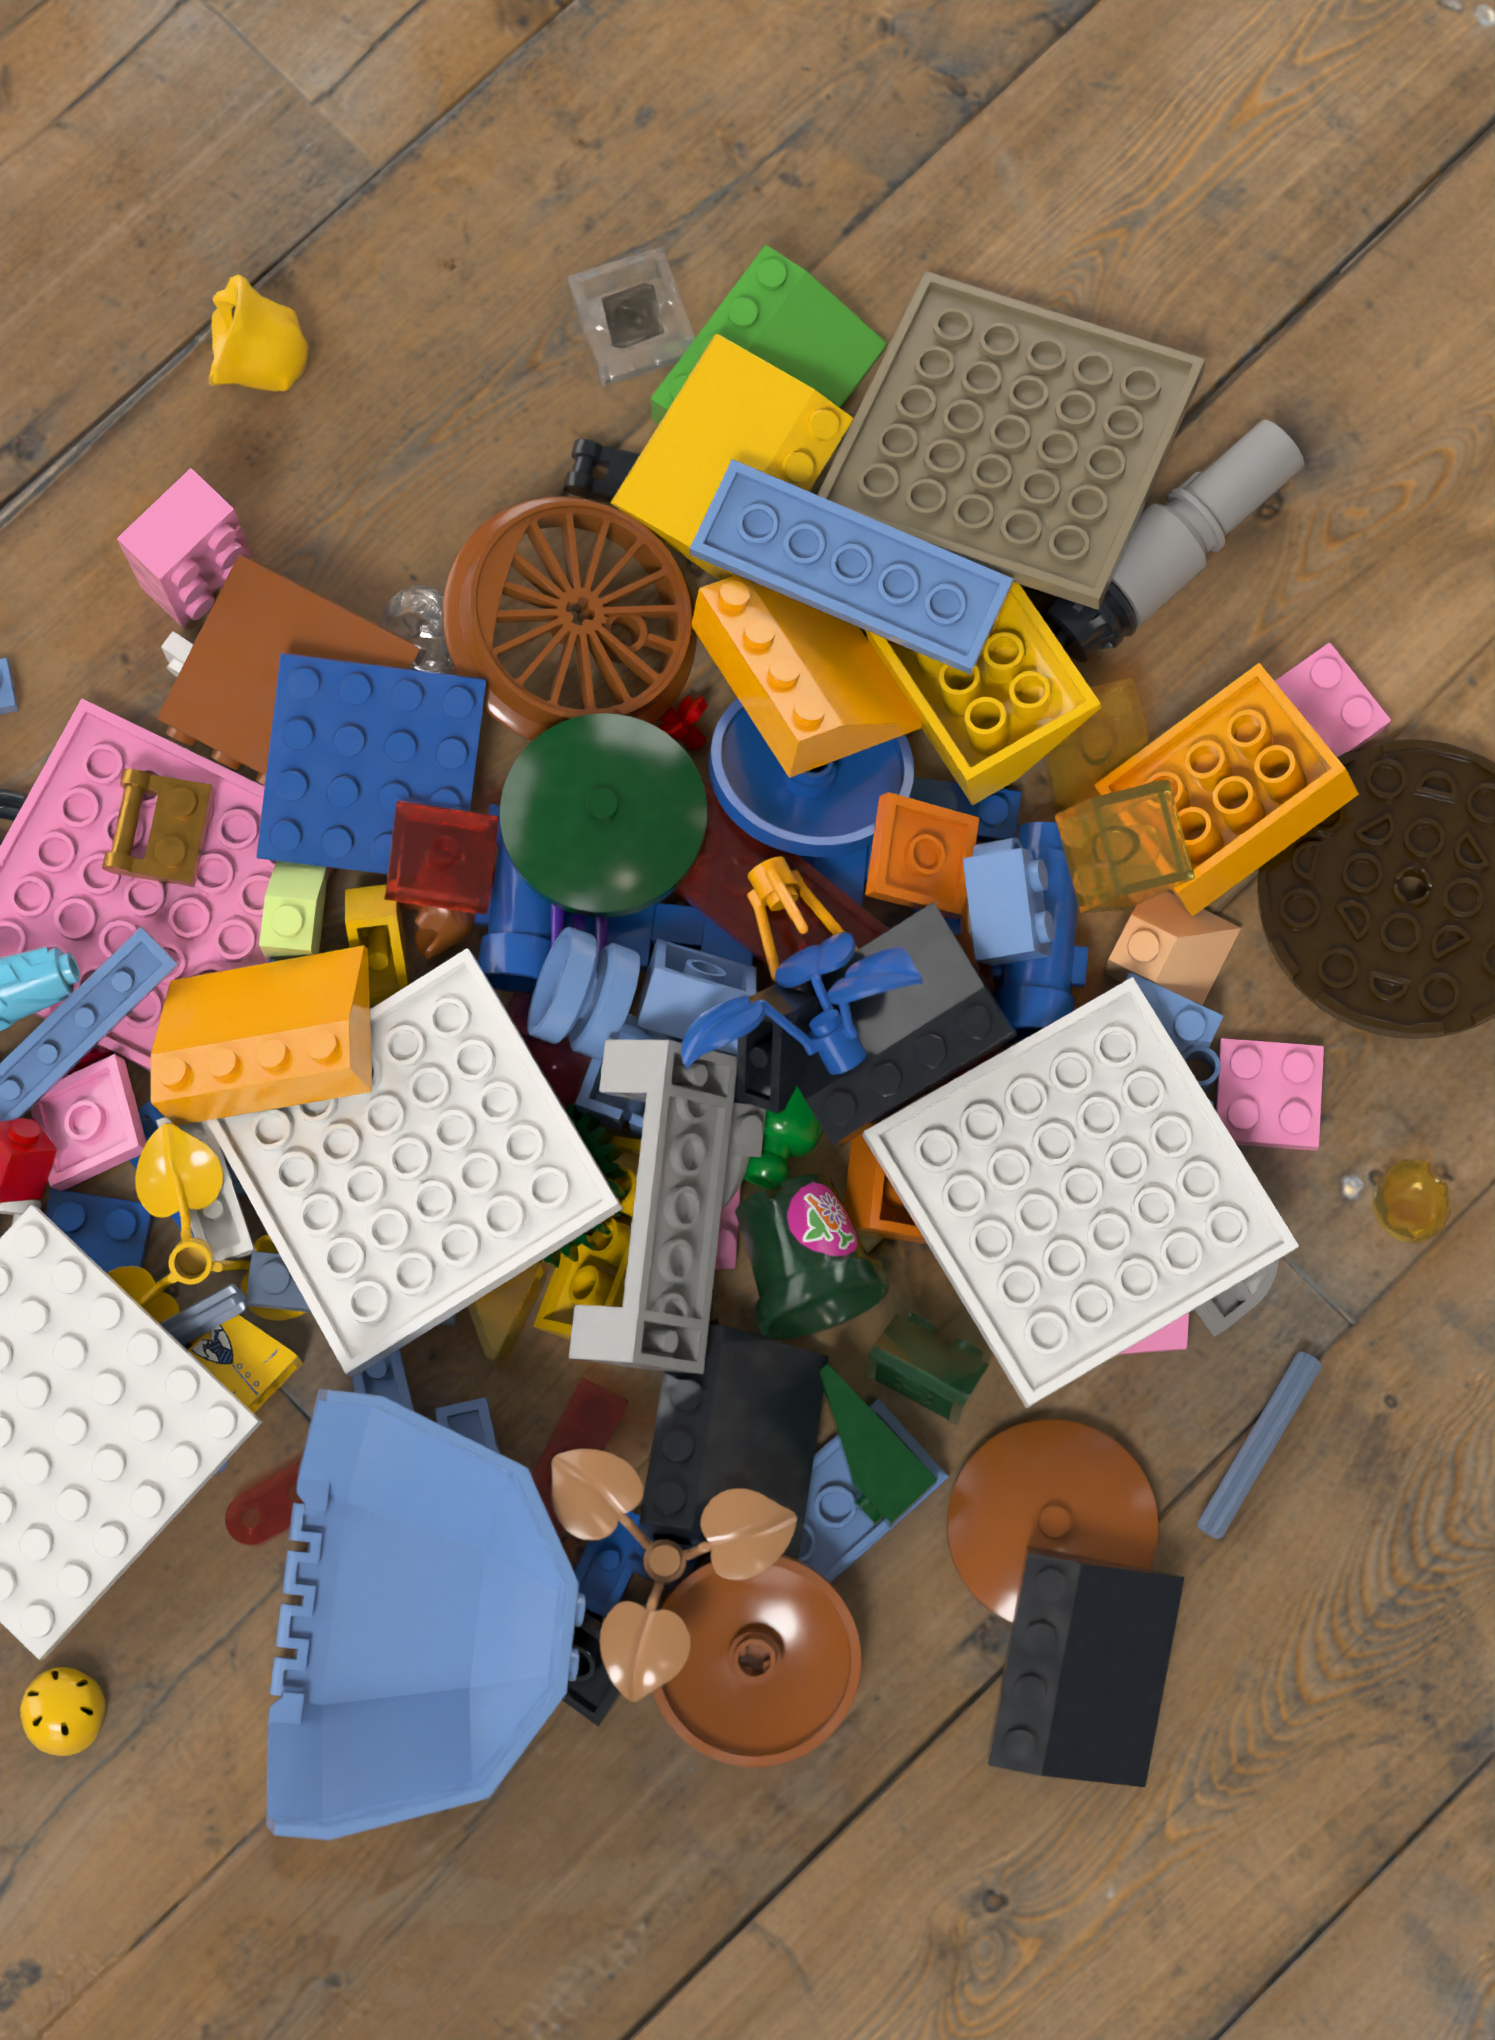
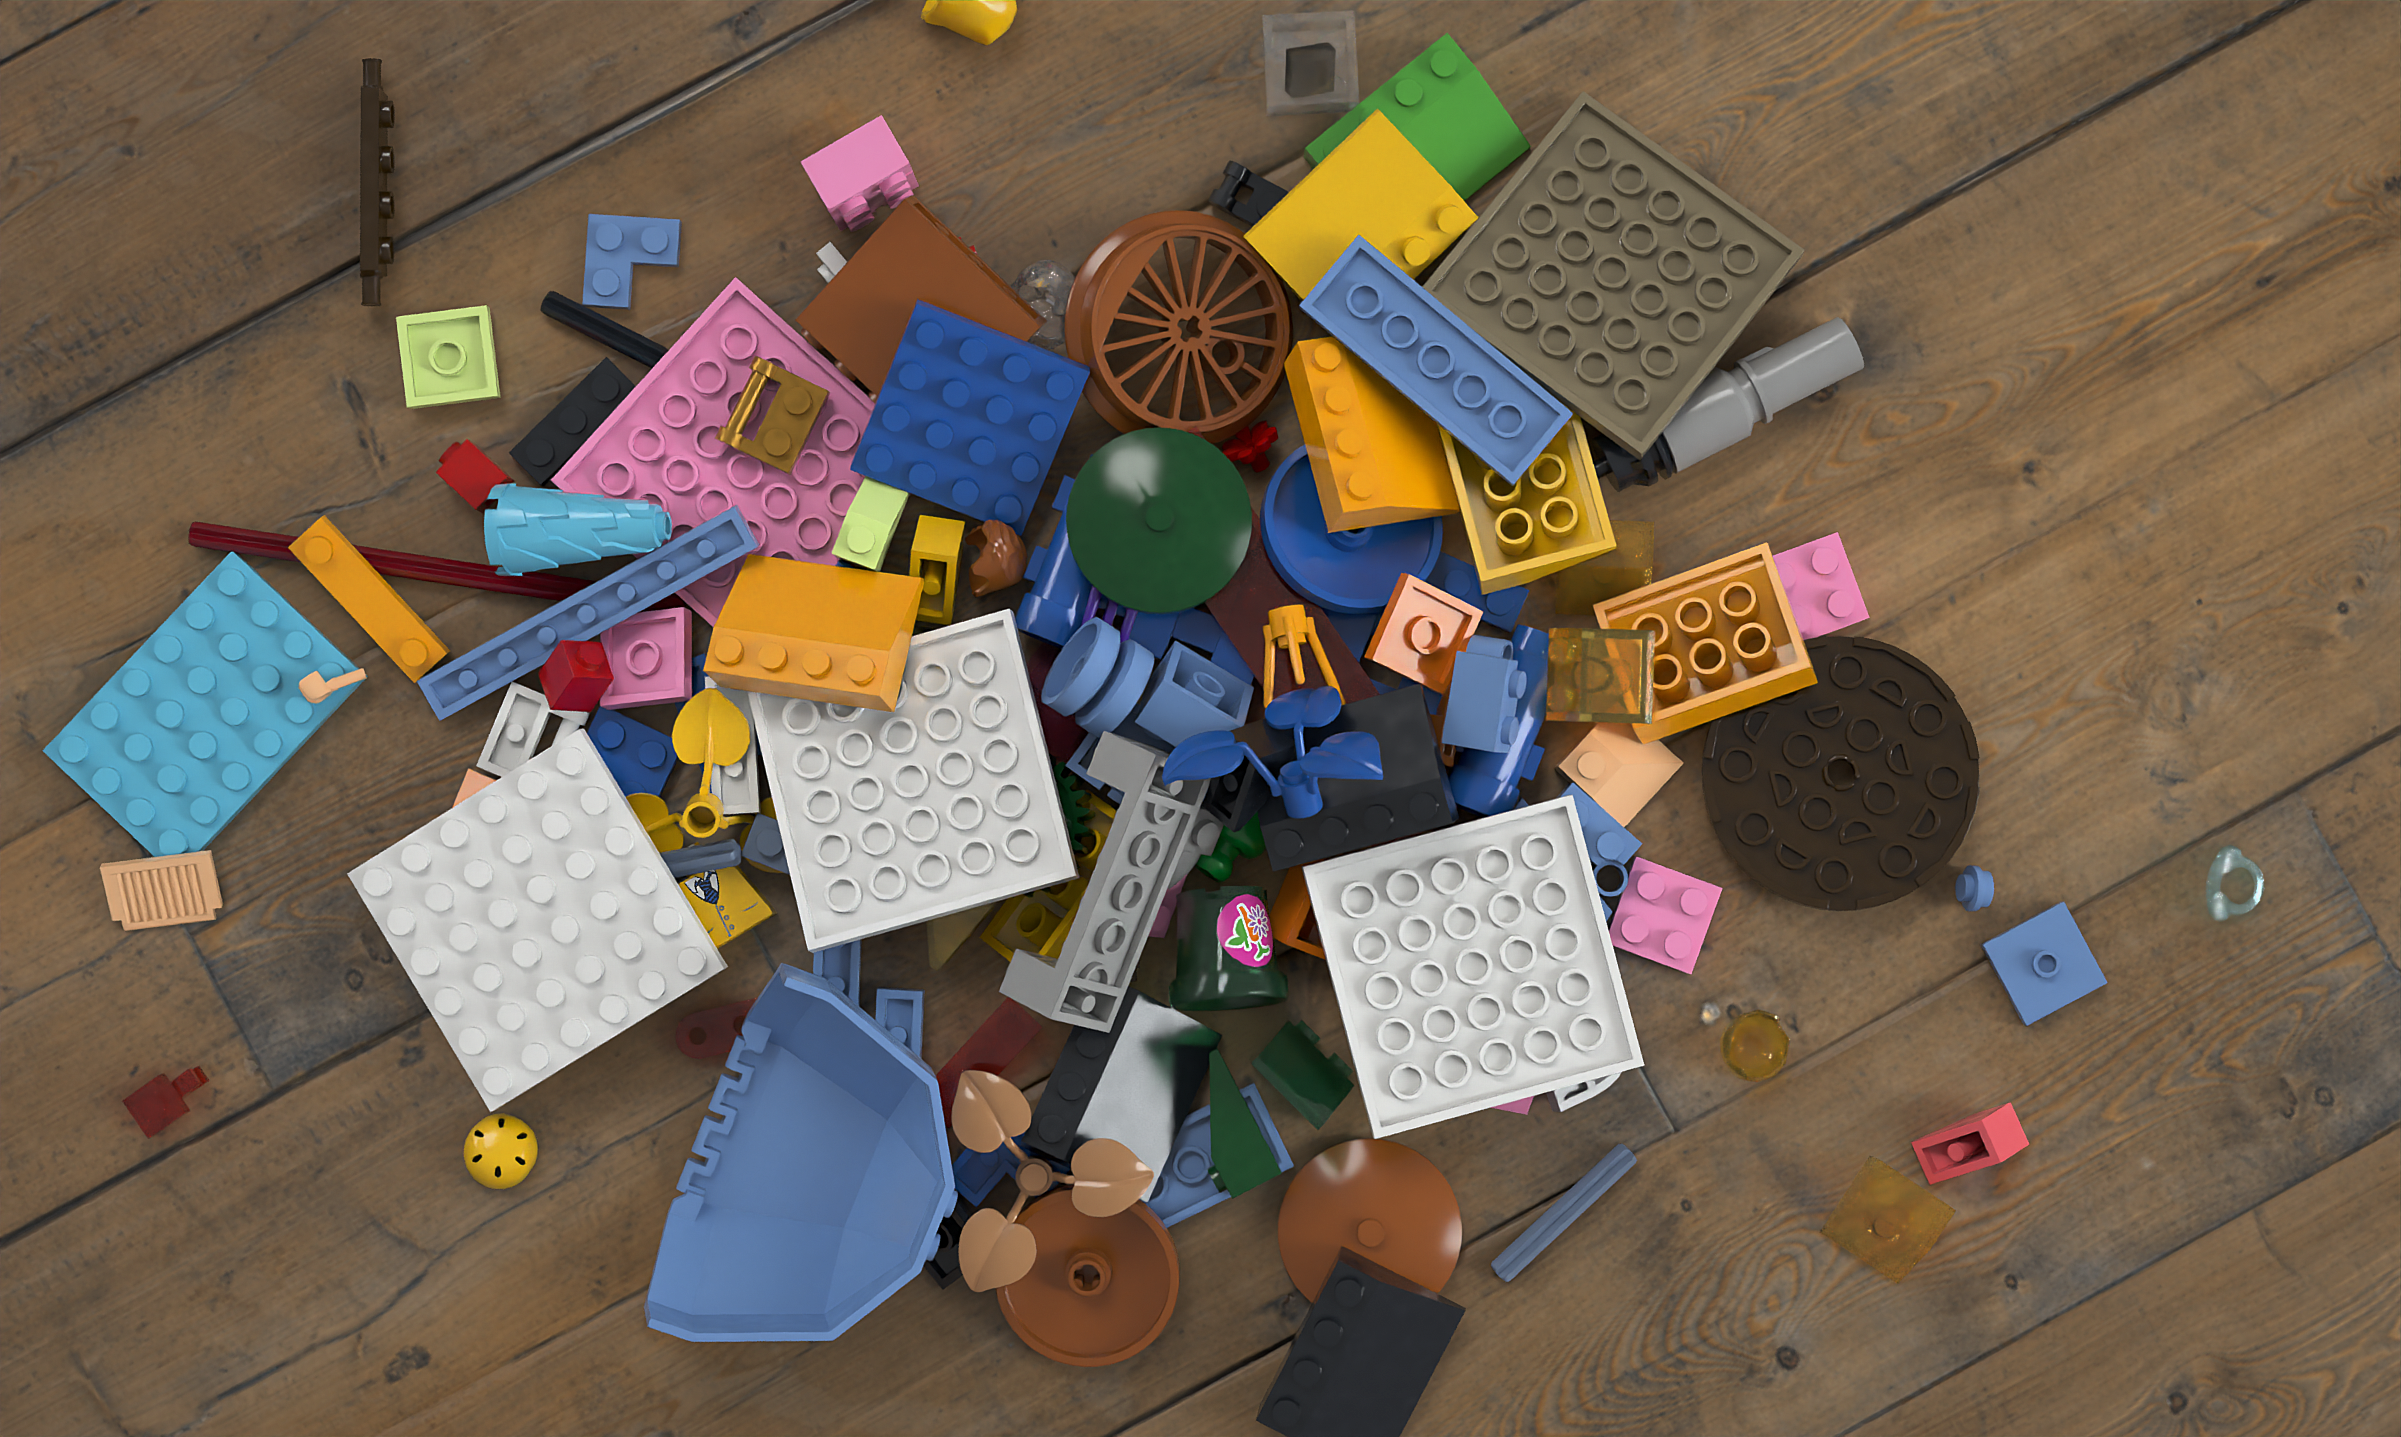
camera: 15 degrees right, 10 degrees up
(441, 857) = (1009, 518): clear red plate -> none

